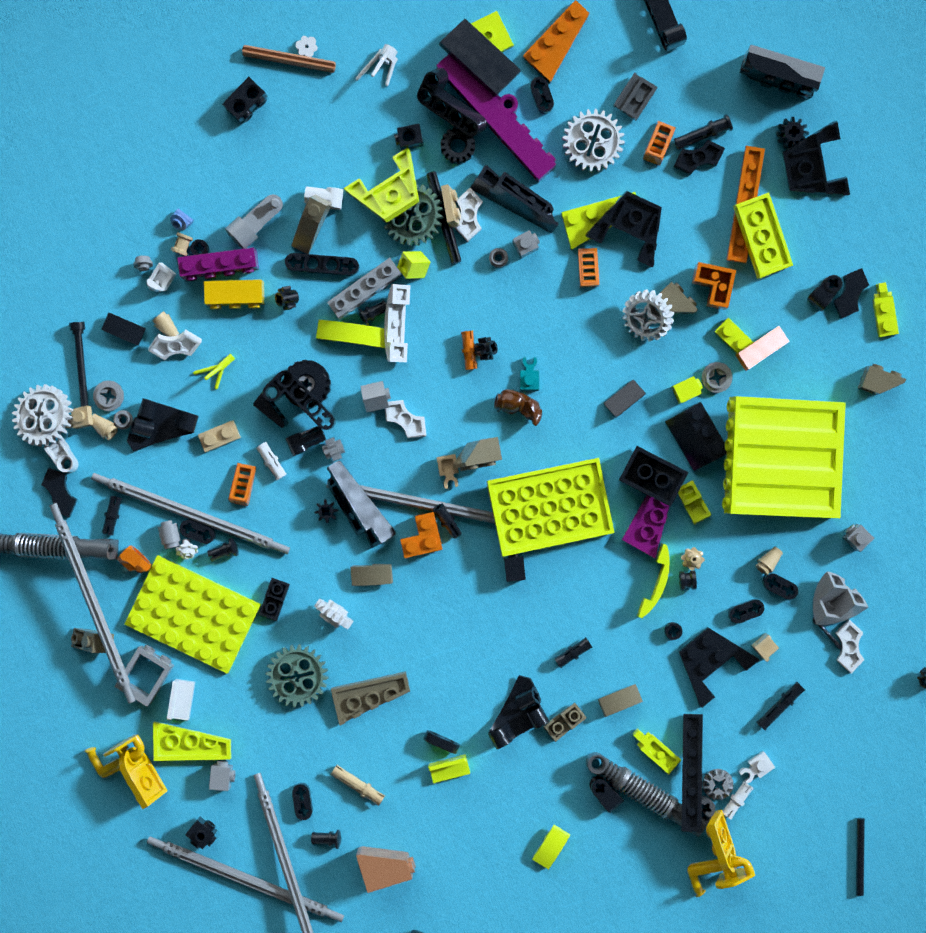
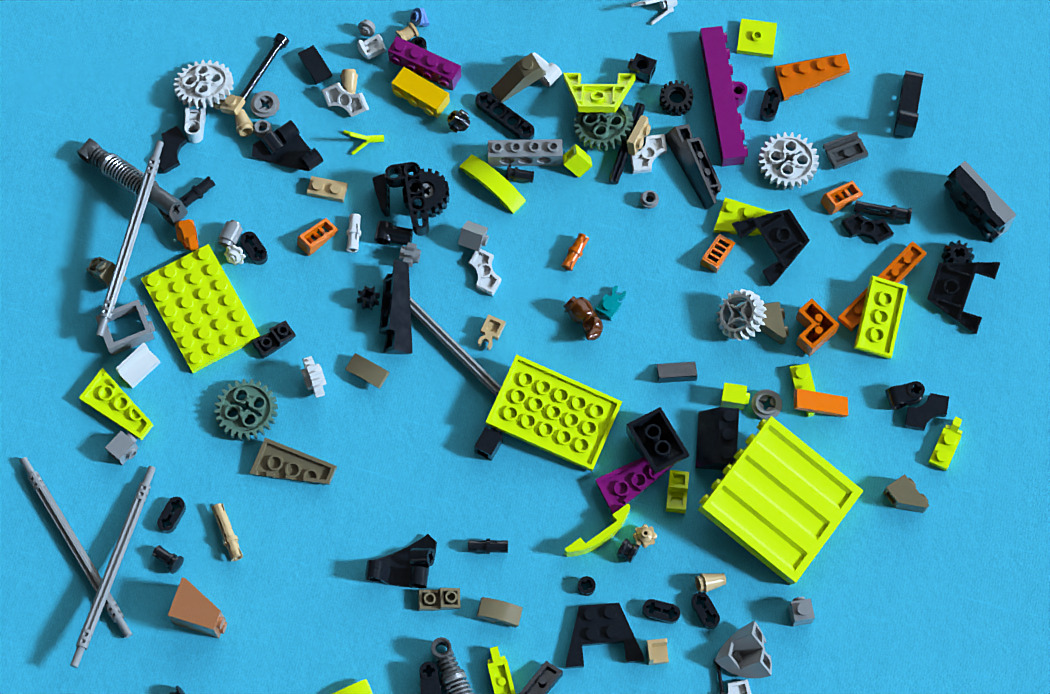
camera: 35 degrees right, 20 degrees down
(135, 768) = (59, 390): yellow plate -> none
(190, 513) = (261, 233): light grey axle -> none
(195, 833) = (70, 481): black brick -> none
(225, 550) = (265, 275): black pin -> none
(244, 230) = (464, 51): light grey piece -> none
(395, 323) = (531, 192): white slope -> none
(428, 537) = (431, 372): orange brick -> none
(441, 742) = (323, 543): black beam -> none
(447, 520) = (460, 367): black axle -> none
(449, 768) = (313, 570): neon yellow panel -> none
(470, 122) = (683, 52): black beam -> none
(479, 454) = (524, 330): dark tan slope -> none
(480, 57) = (739, 44): black tile -> none
(485, 348) = (589, 258): black gear -> none
(526, 243) = (679, 201): light grey brick -> none

